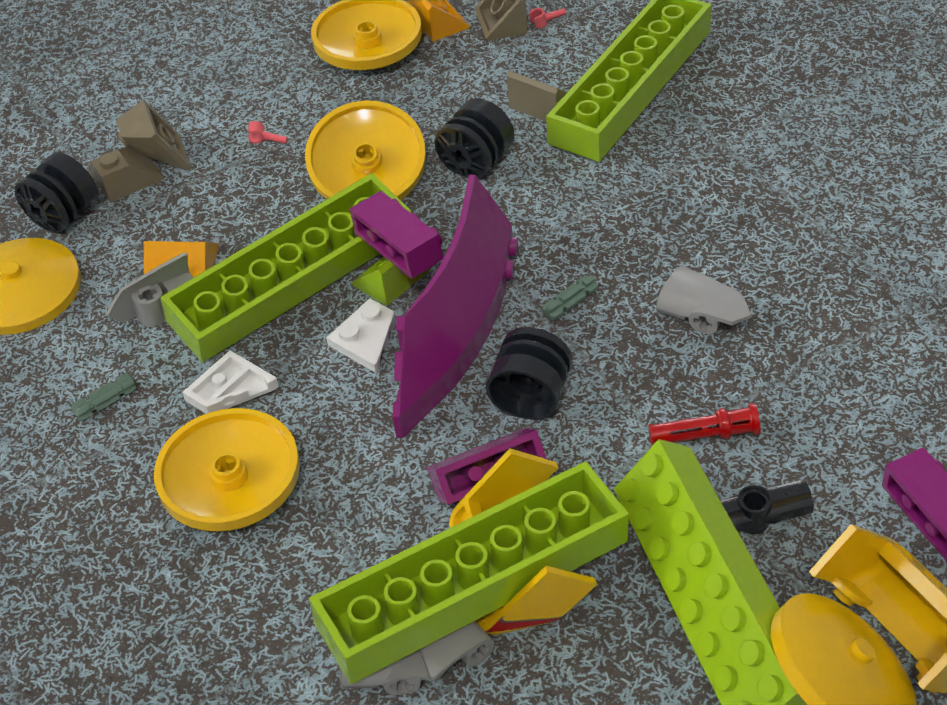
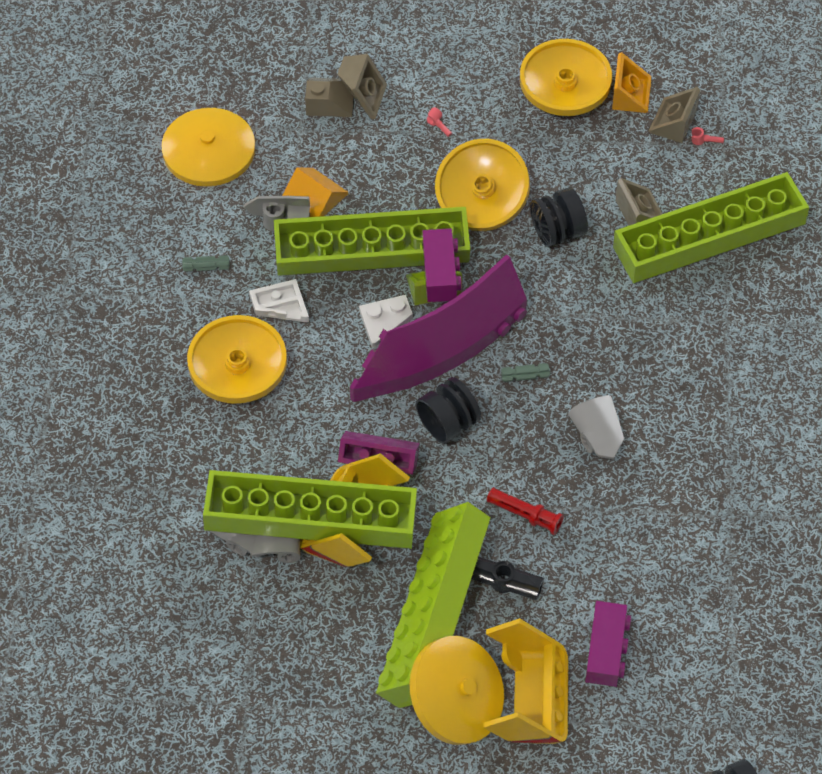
camera: 30 degrees right, 10 degrees up
(56, 192) = (275, 91): black wheel -> none

